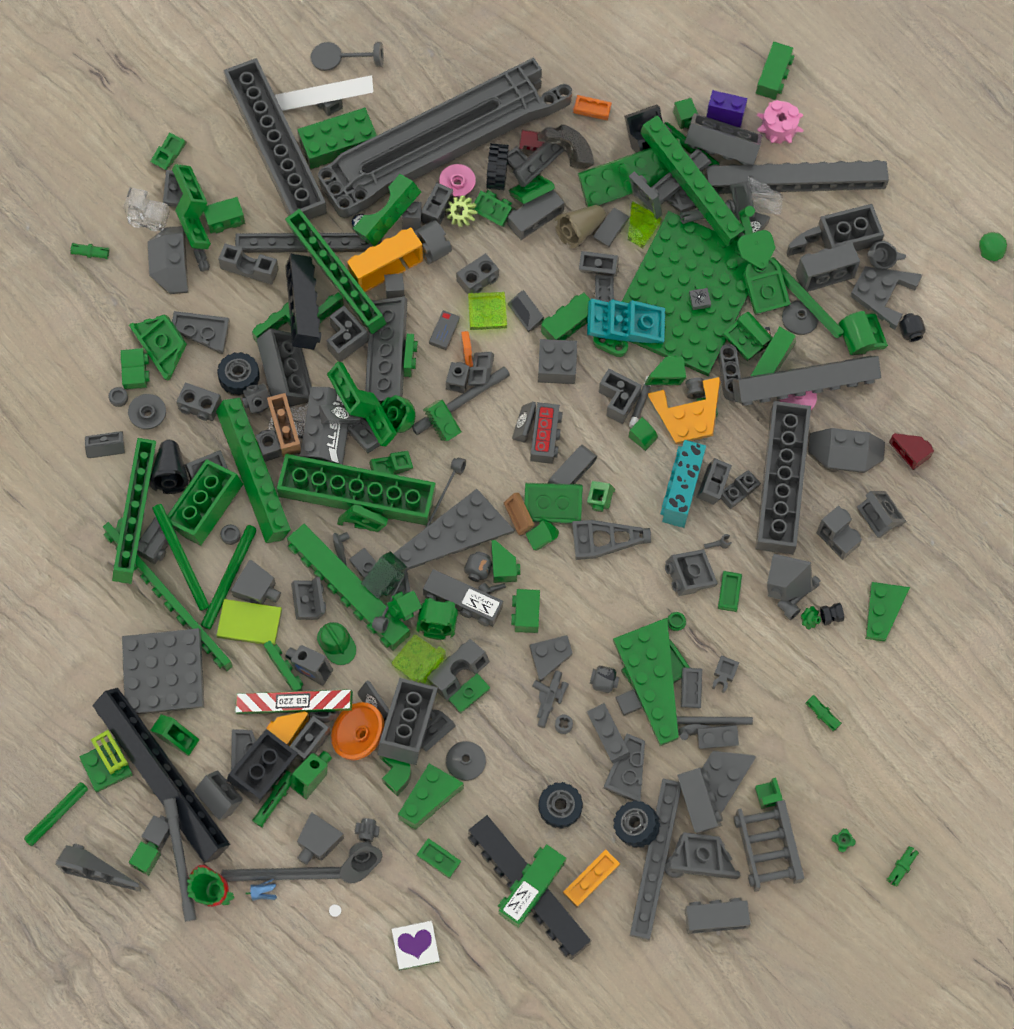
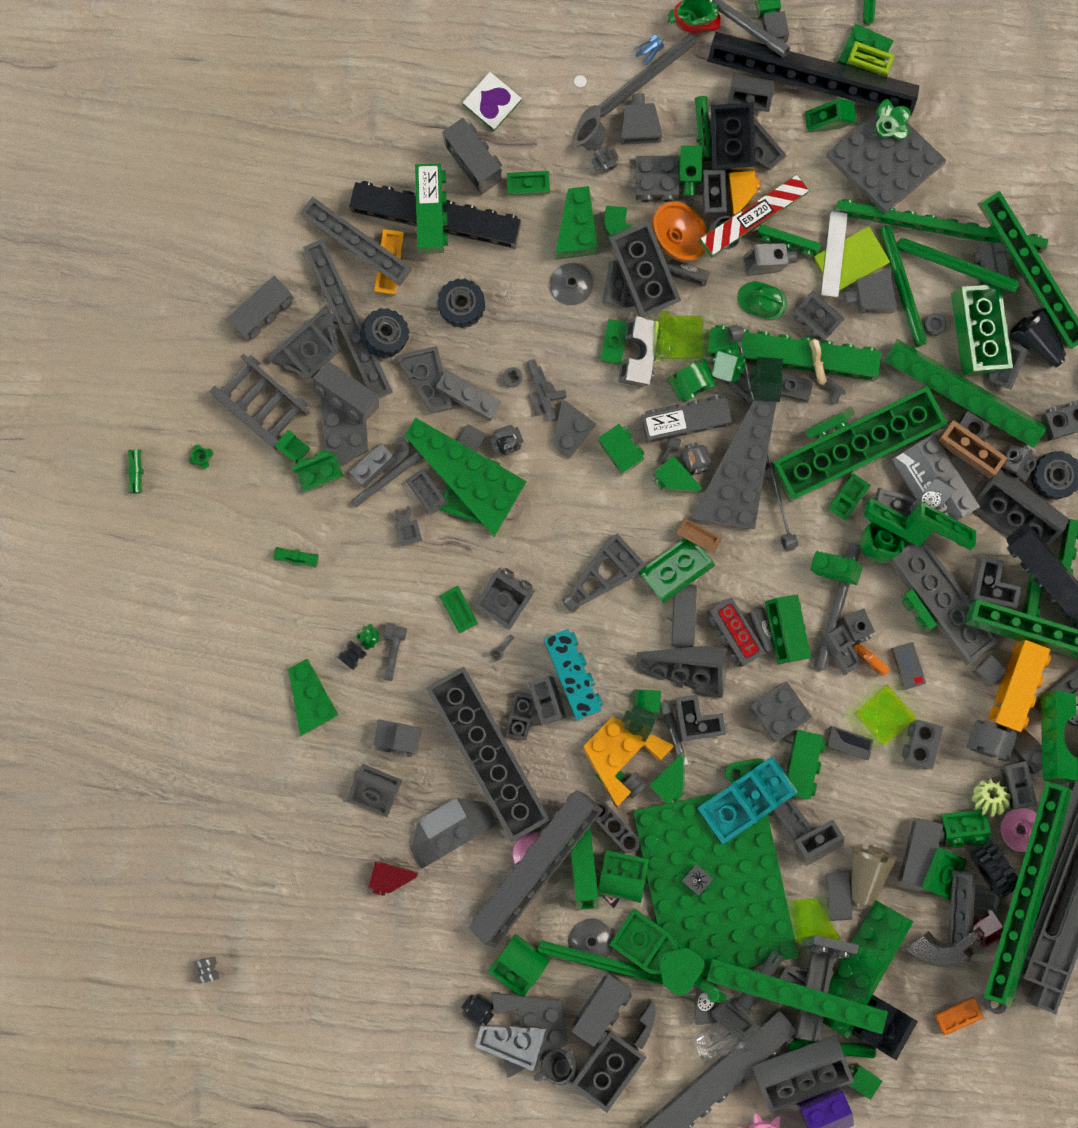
camera: 145 degrees right, 15 degrees up
(134, 691) = (894, 118): none -> green plate
(258, 634) = (834, 254): none -> white sticker
(339, 560) = (816, 351): none -> tan piece
(339, 788) = (657, 178): none -> dark grey plate
(465, 906) = (472, 155): none -> dark grey brick
(491, 131) = (1028, 894): none -> green brick
(508, 407) = (787, 629): none -> green brick
(542, 535) = (661, 533): green tile -> none
(588, 428) = (694, 667): none -> dark grey wedge
(599, 490) = (644, 604): green brick -> none
(606, 911) = (356, 241): none -> dark grey plate
(660, 421) = (639, 721): none -> clear green brick
(676, 621) = (484, 544): green plate -> none
(762, 759) = (318, 470): none -> green bracket
(789, 578) = (412, 651): dark grey slope -> none
(903, 288) = (513, 1043): none -> wing

